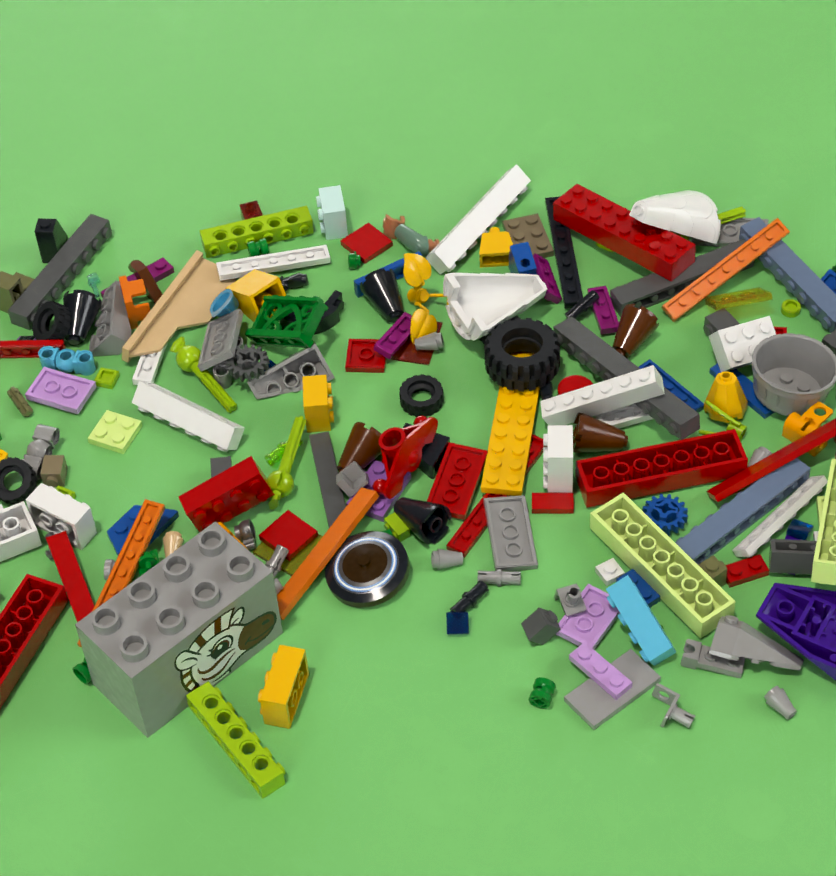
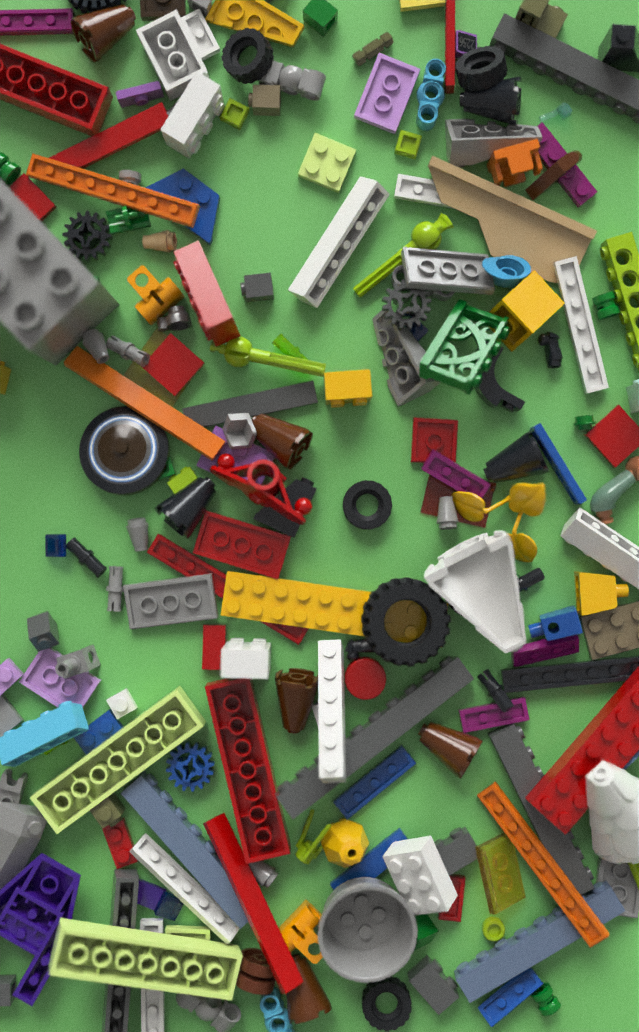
camera: 85 degrees right, 40 degrees up
(34, 561) = (140, 94): none -> medium lavender plate

